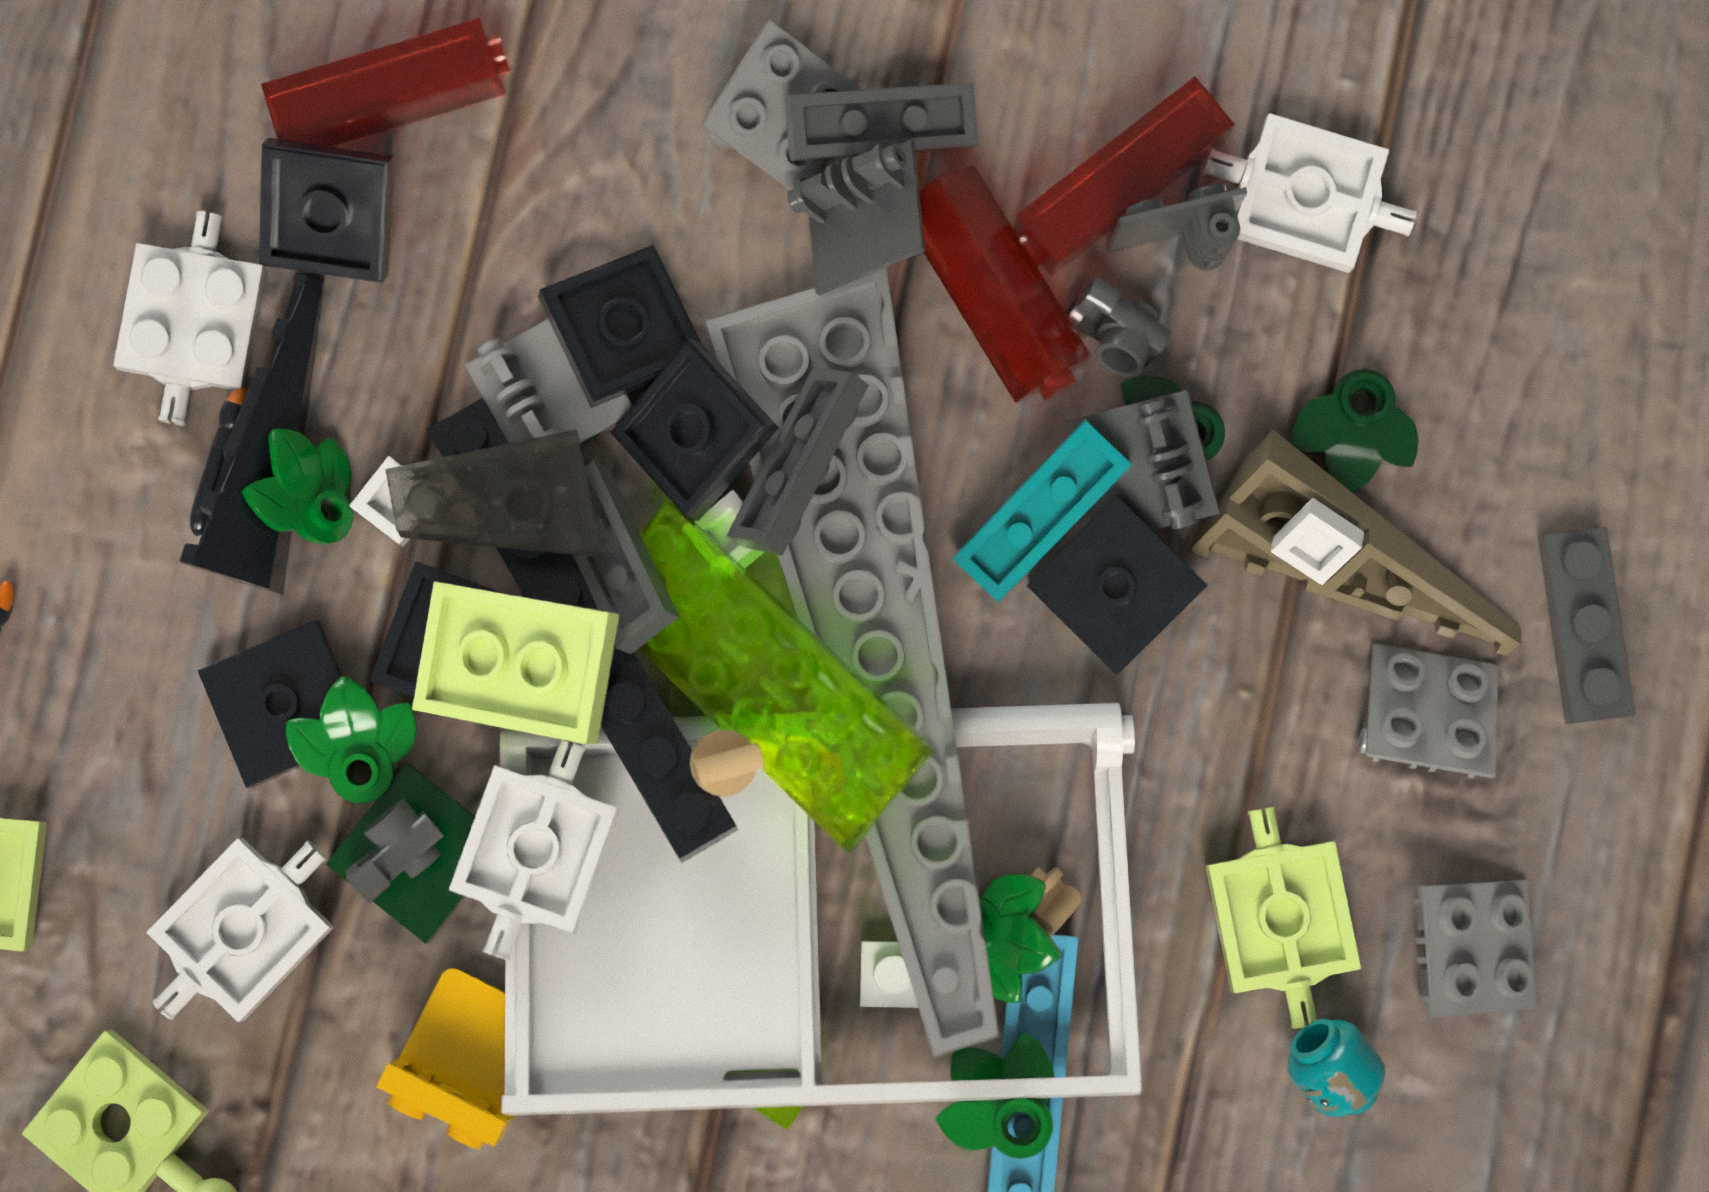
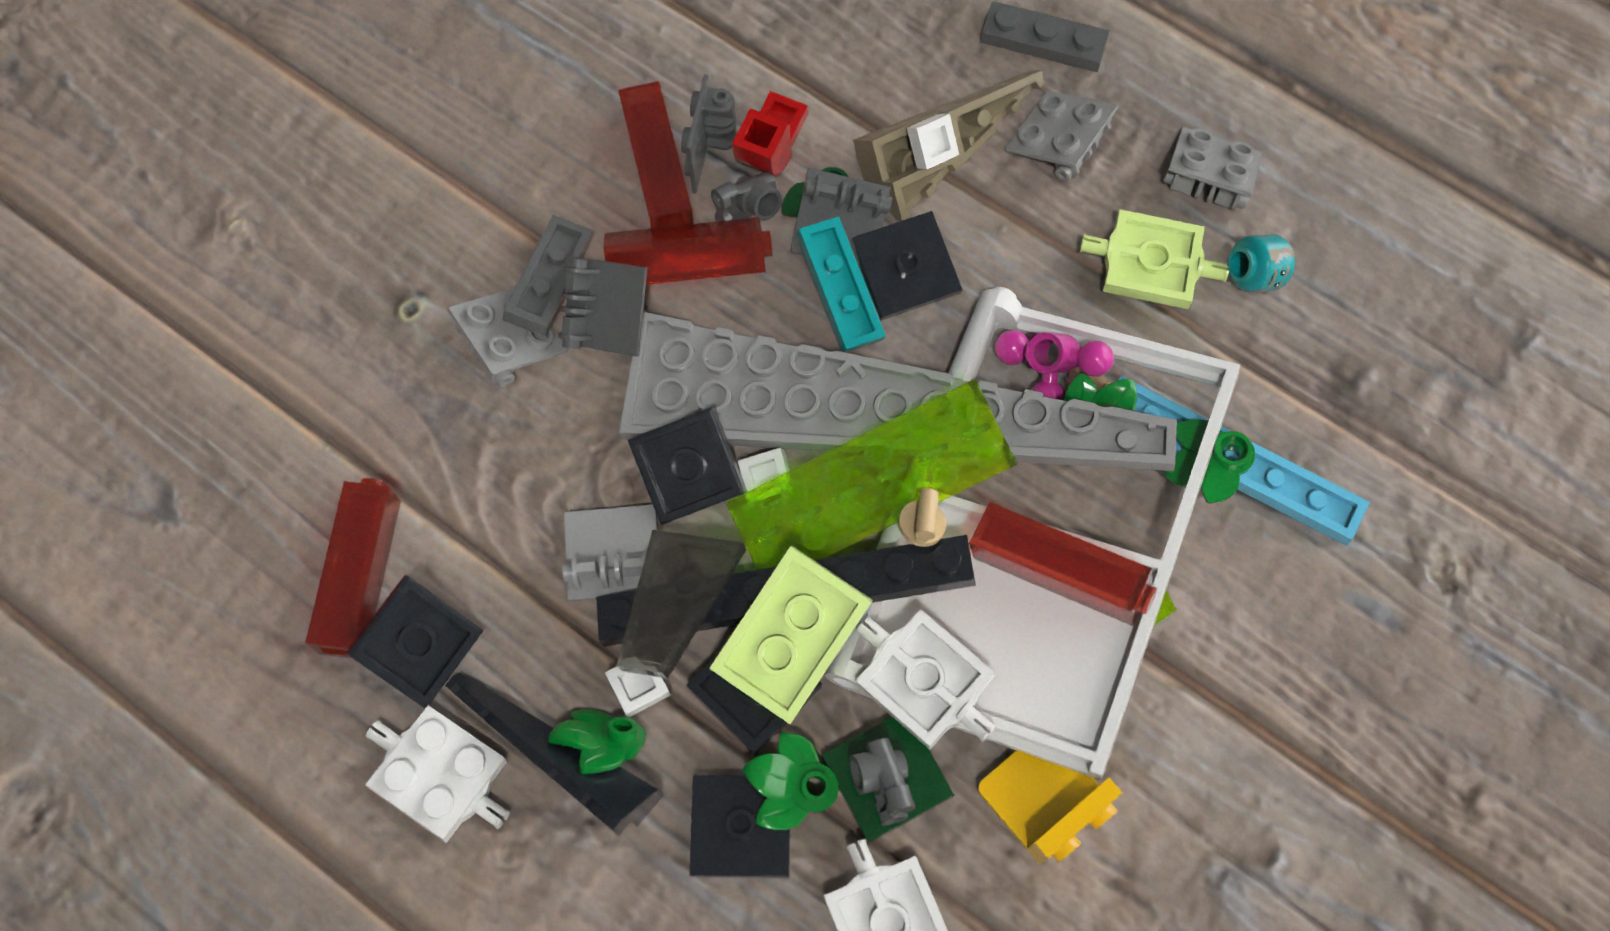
camera: 65 degrees left, 15 degrees down
(215, 459) = (564, 812): black piece -> none
(618, 324) = (593, 488): black plate -> none
(626, 576) = (769, 539): dark grey plate -> none
(749, 962) = (1063, 564): none -> clear red brick
(798, 460) = (743, 400): dark grey plate -> none
(884, 976) = (1098, 501): white plate -> none
(1009, 850) = (1093, 358): none -> dark pink piece
(1215, 315) = (770, 133): none -> red brick
(1310, 192) = (727, 57): white plate -> none
(1356, 440) = (877, 104): dark green plate -> none

